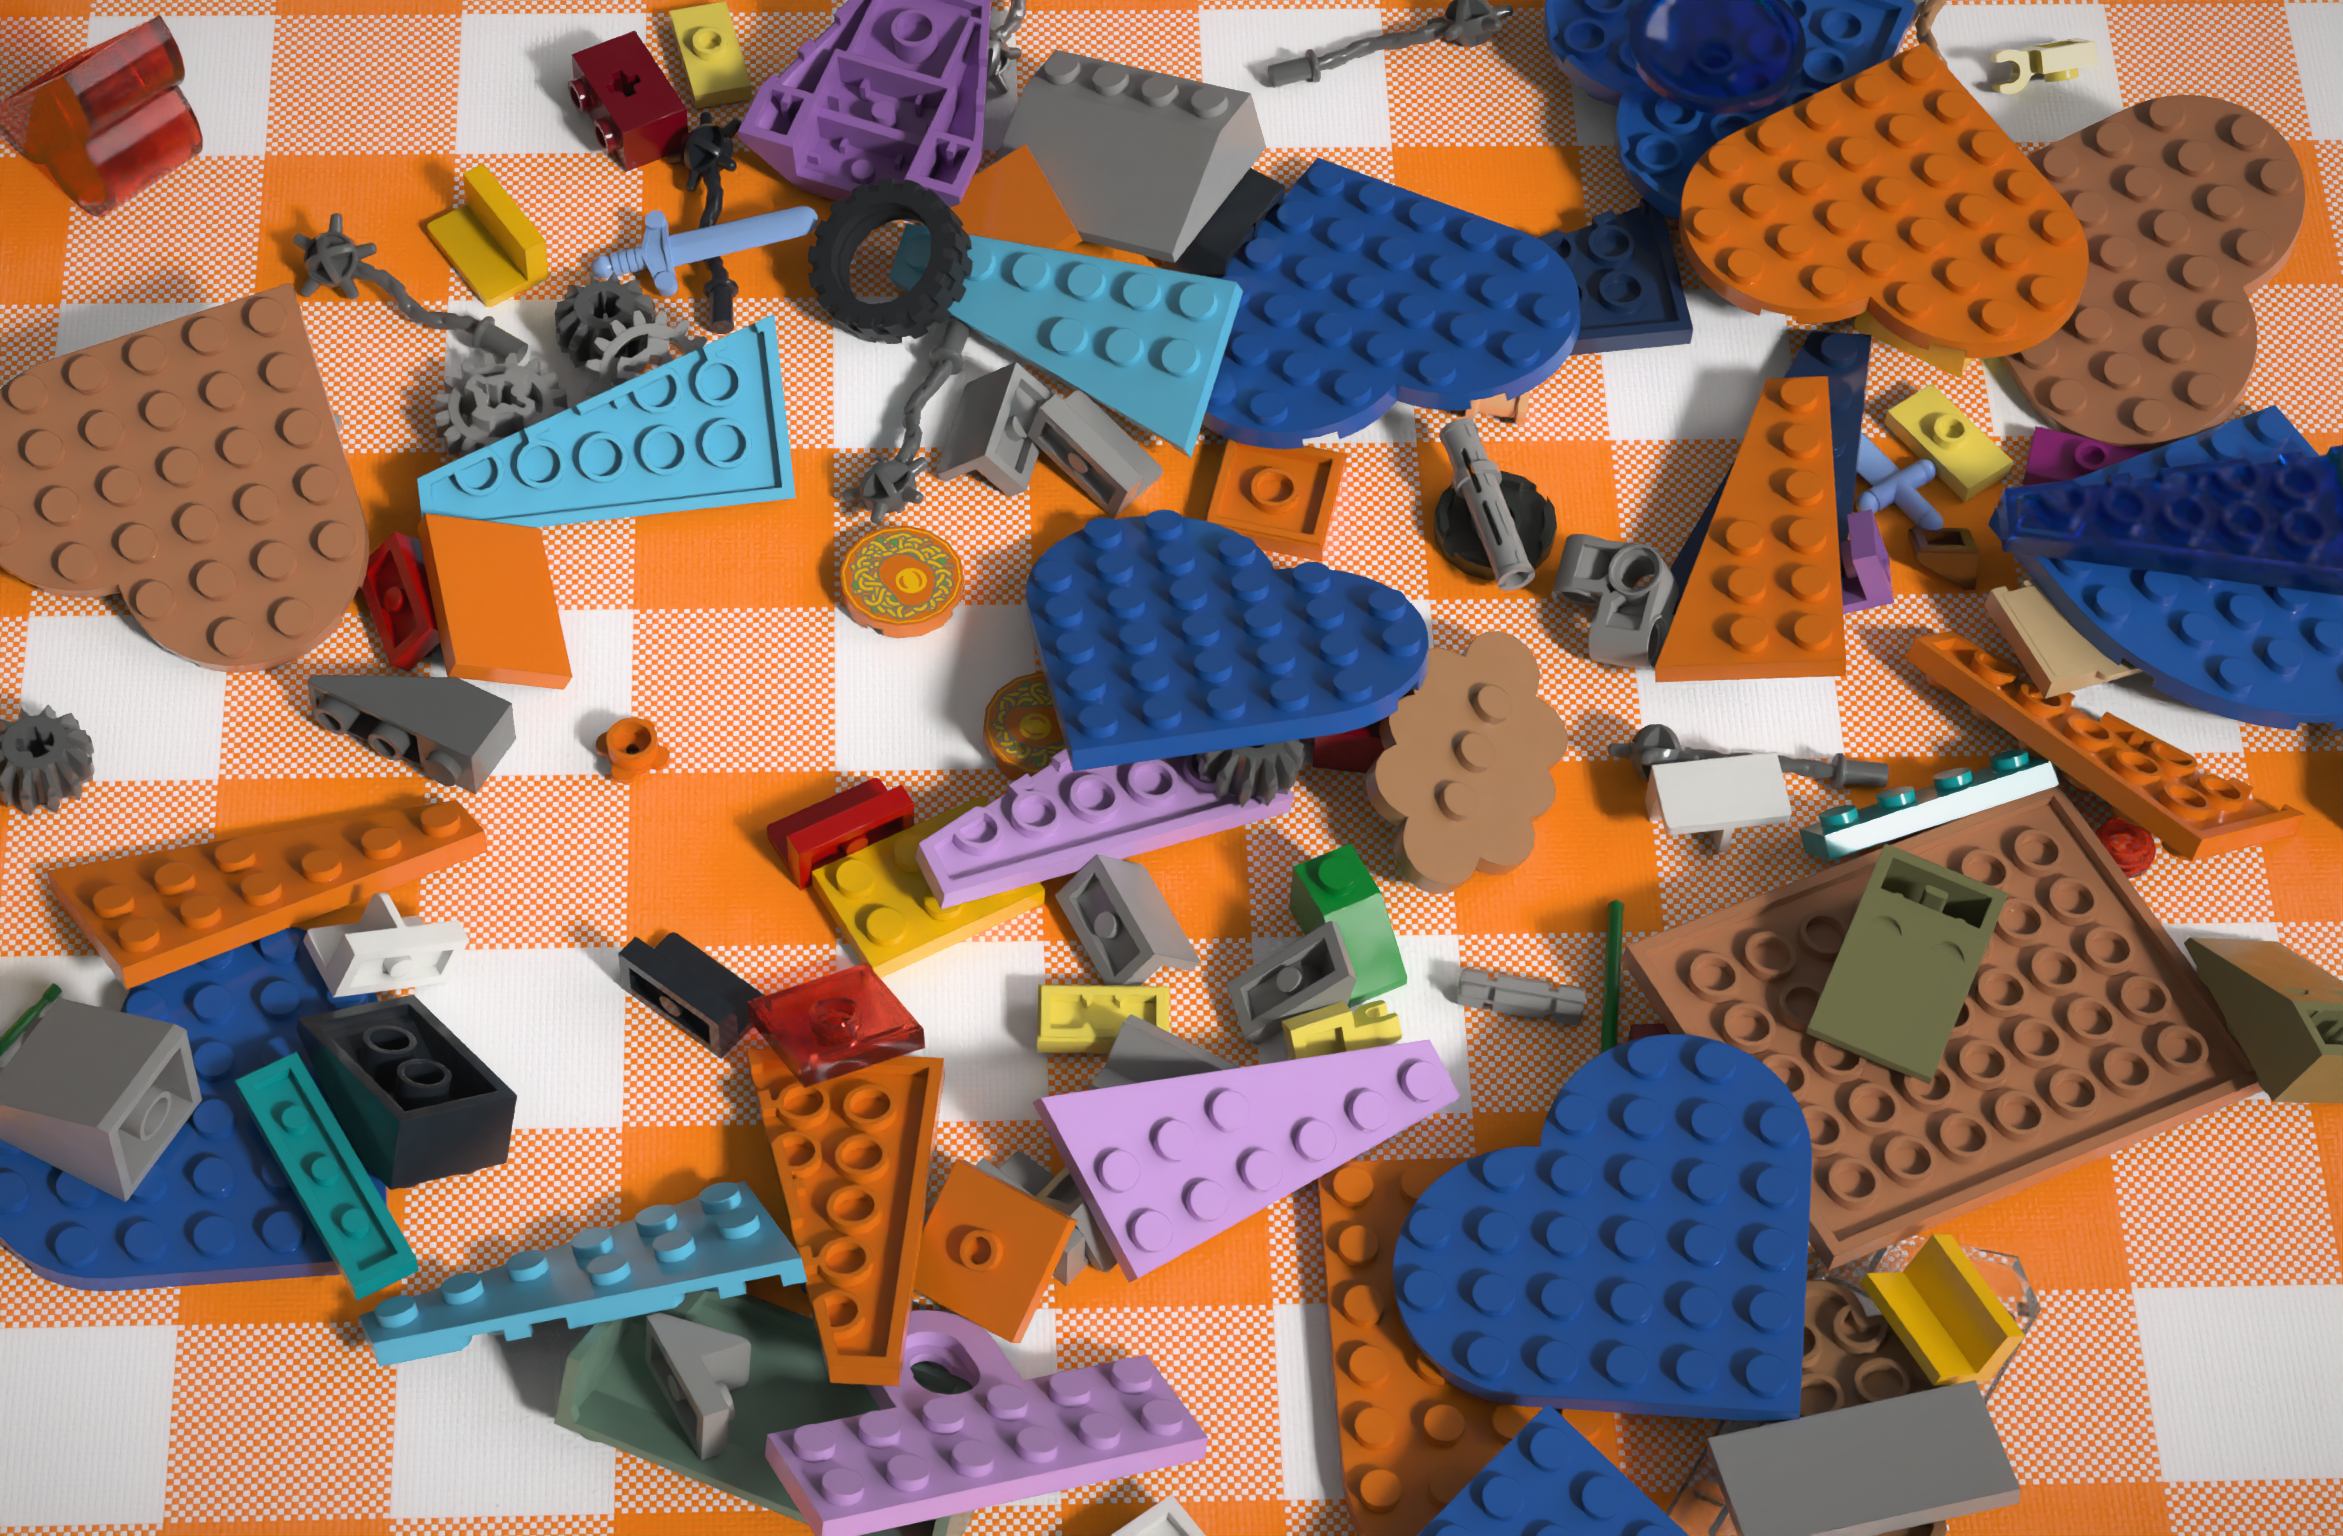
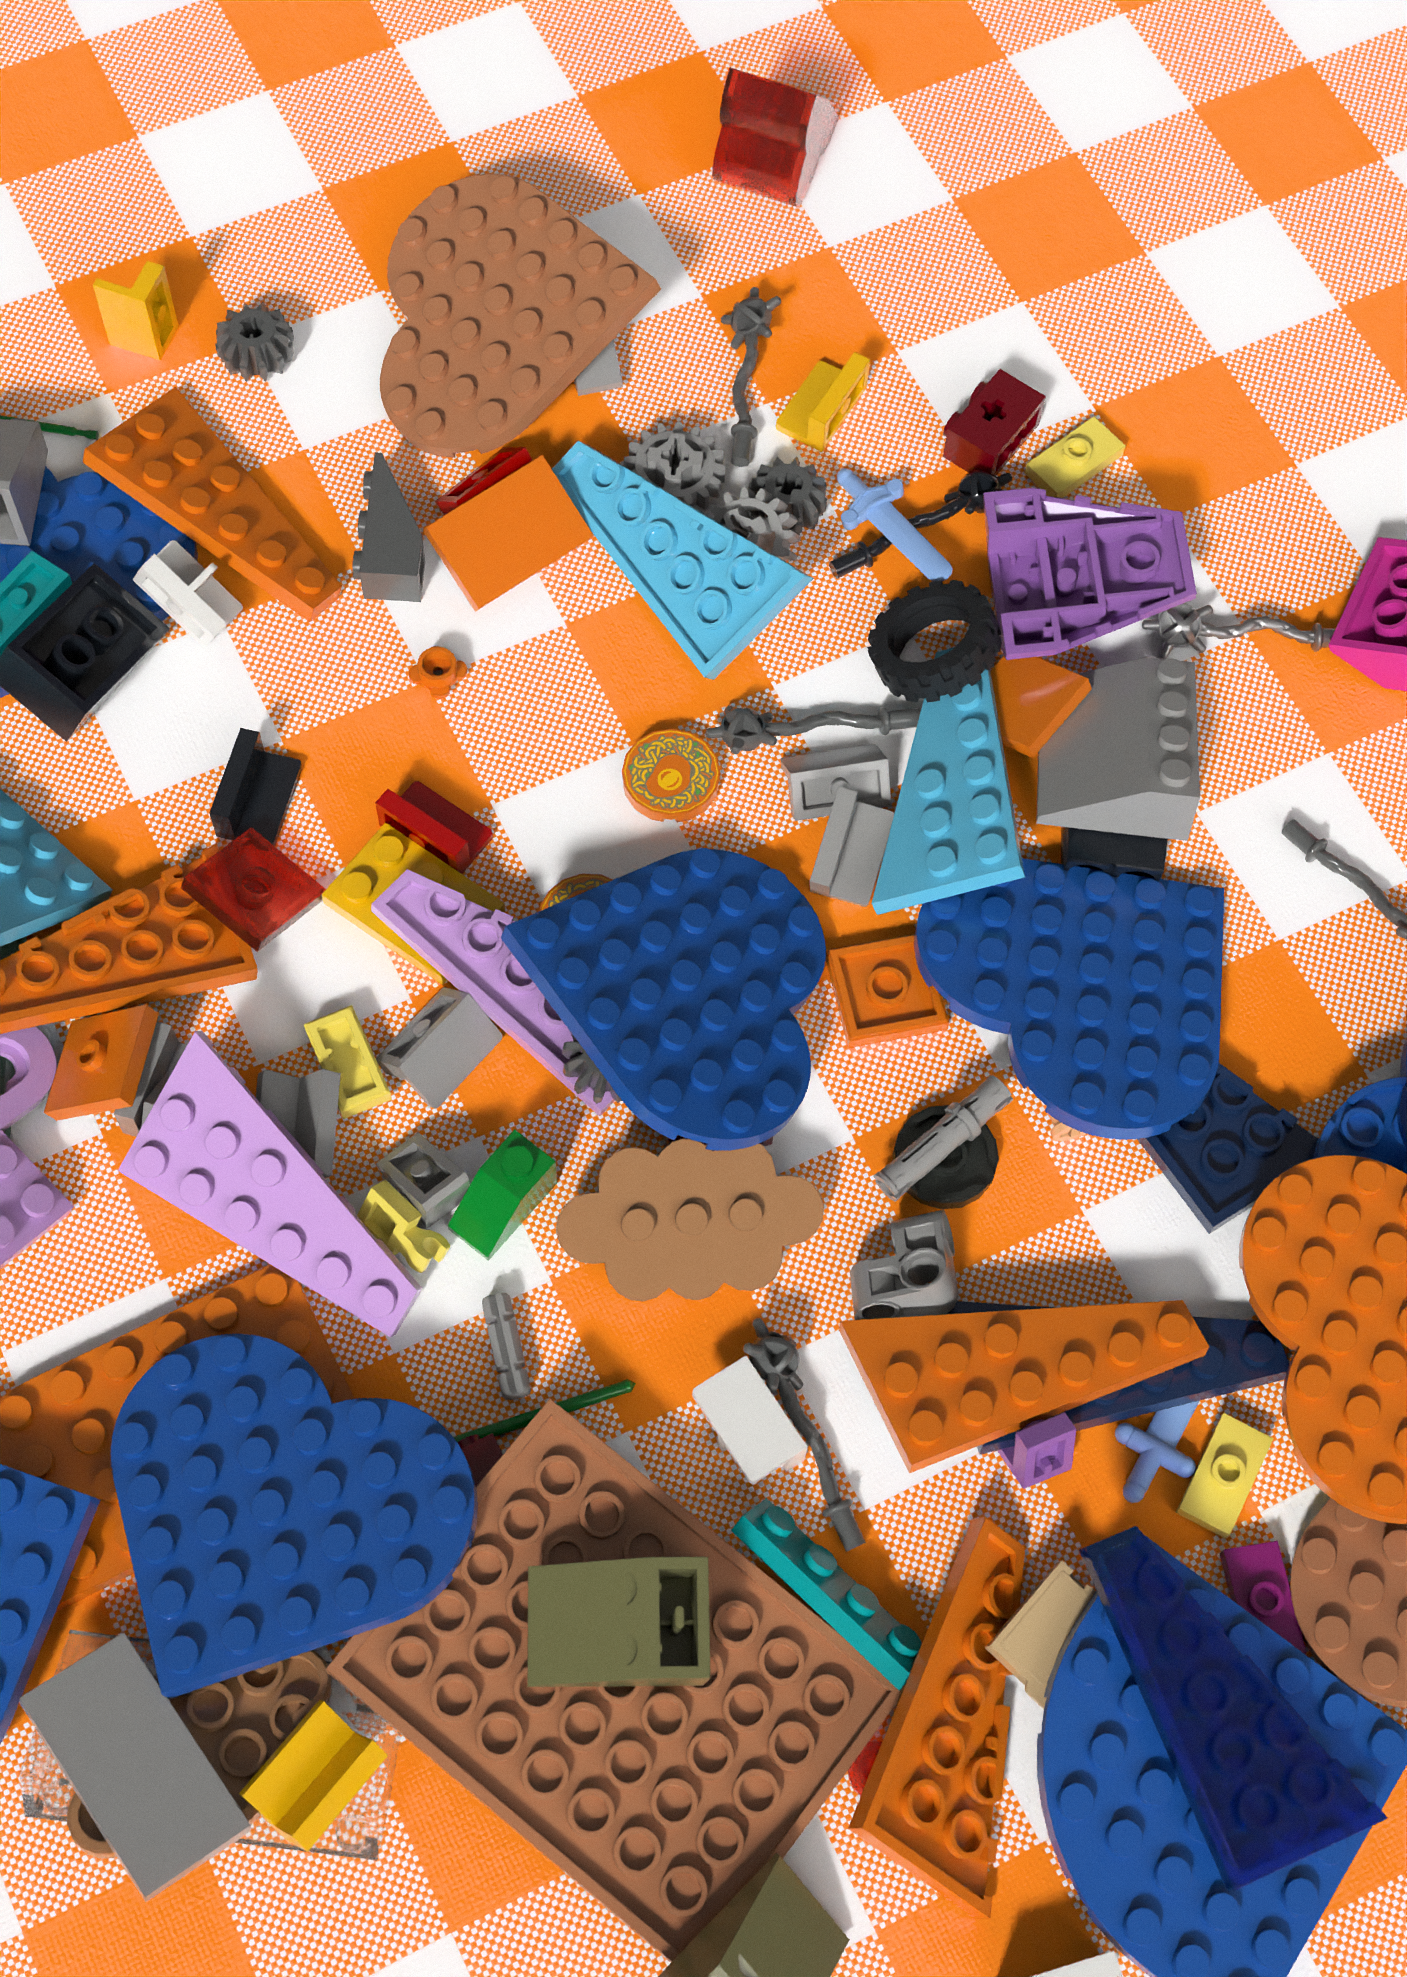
camera: 65 degrees right, 10 degrees up
(1948, 553) = (1105, 1511): reddish brown slope -> none

